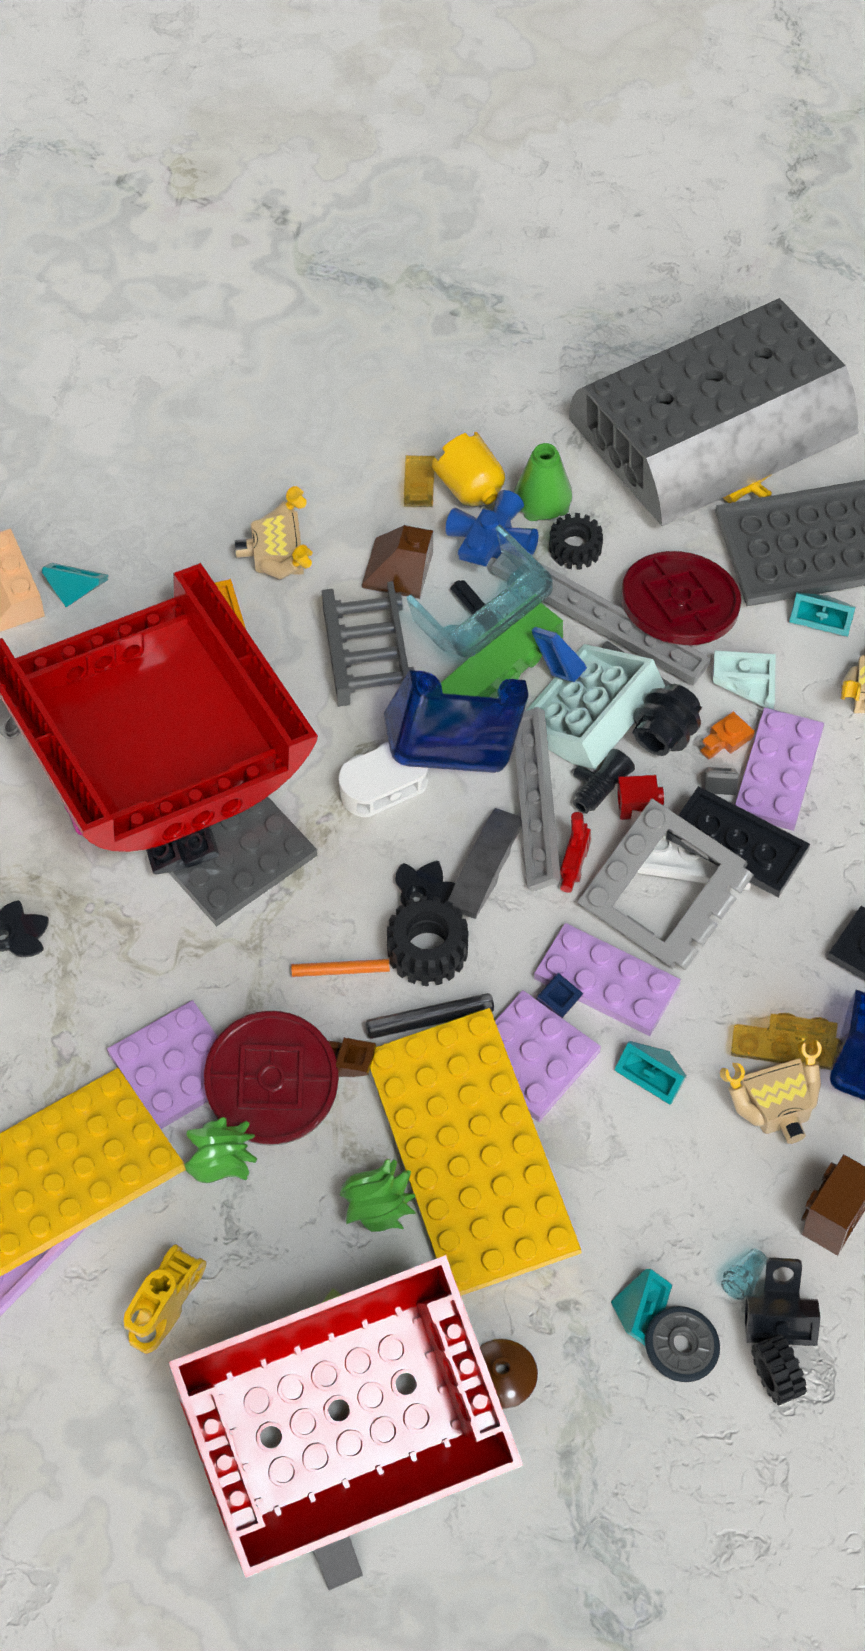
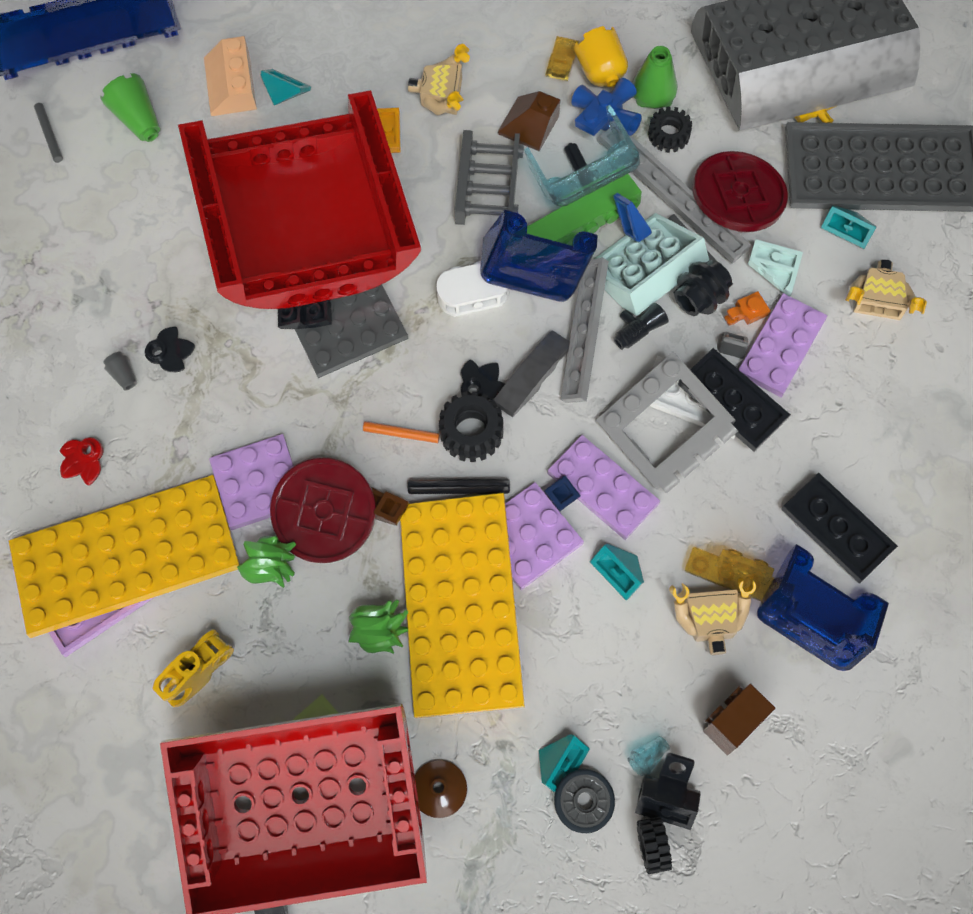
camera: 15 degrees right, 10 degrees up
(575, 853) = (604, 380): red piece -> none
(636, 792) = (665, 342): red brick -> none

